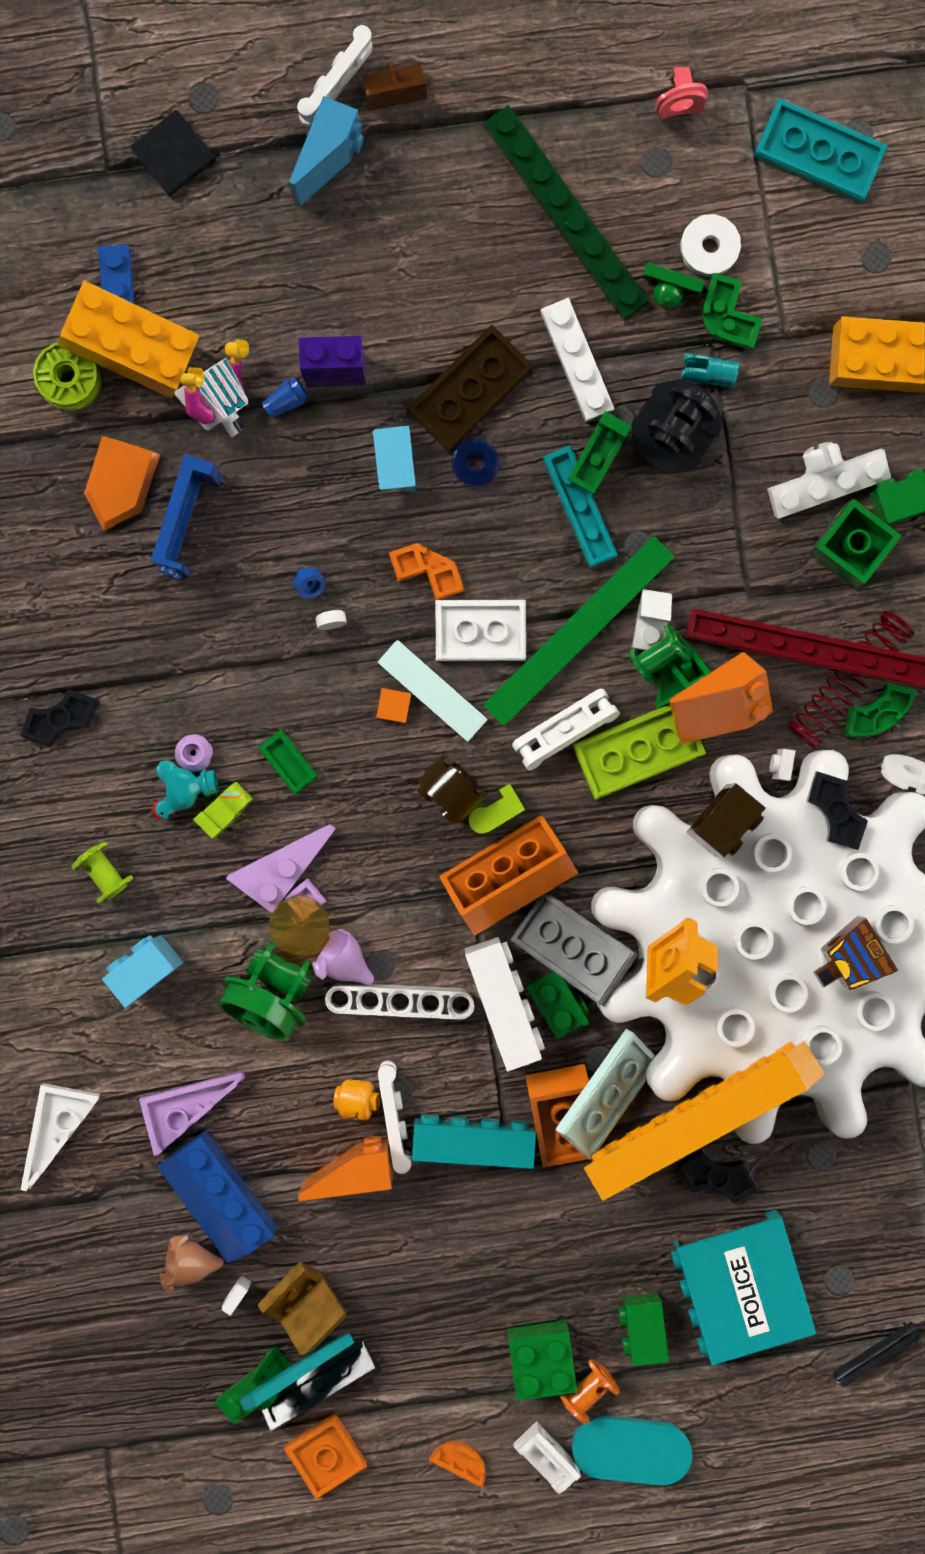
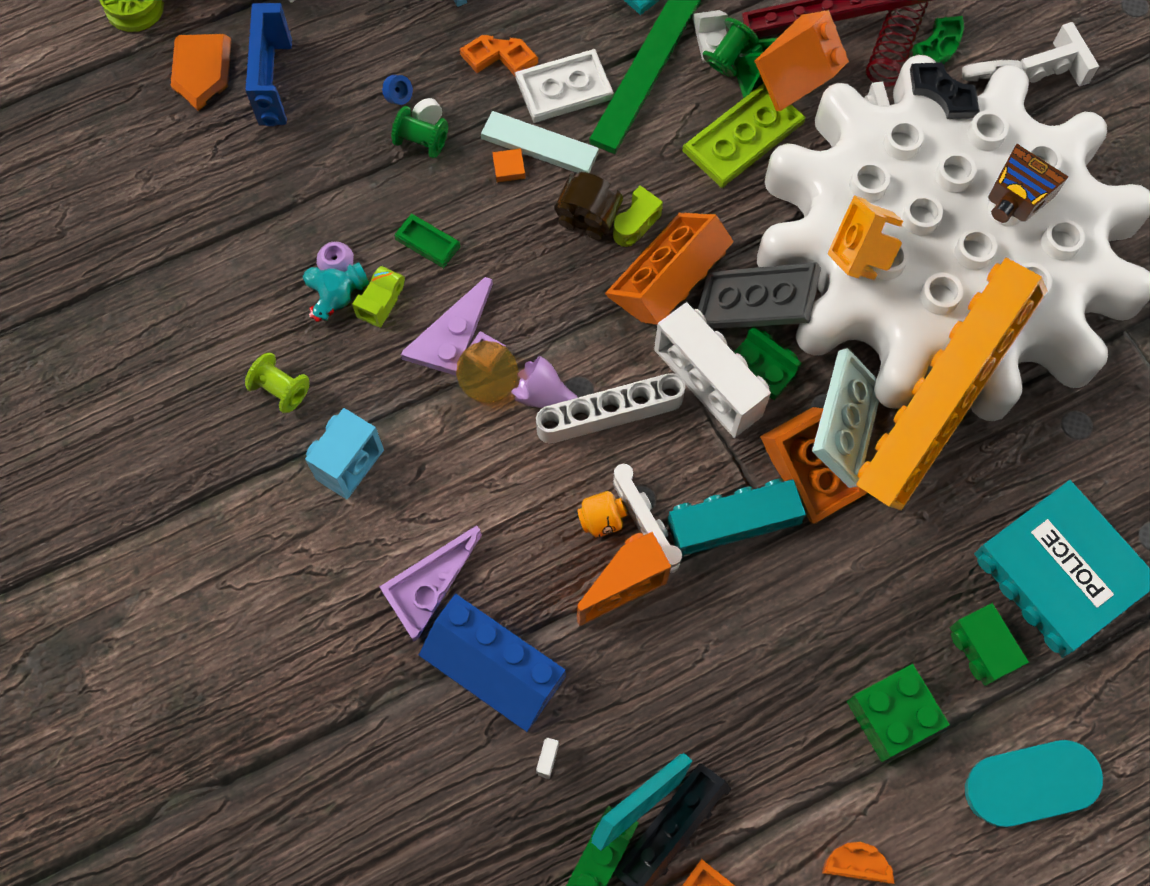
camera: 15 degrees left, 20 degrees down
(55, 1120) = (298, 637): white wing -> none
(70, 712) = (186, 278): black tile -> none
(187, 1263) = (482, 738): nougat hat -> none
(261, 1009) = (476, 440): green piece -> none
(304, 1307) = (623, 740): pearl gold bracket -> none
(315, 643) = (419, 131): none -> green hose
(548, 1457) = (949, 822): white hinge -> none
(565, 728) = (670, 133): white plate -> none
(590, 1391) = (962, 727): orange hose -> none
(727, 820) = (851, 114): dark brown brick -> none
(730, 1179) = (974, 475): black tile -> none

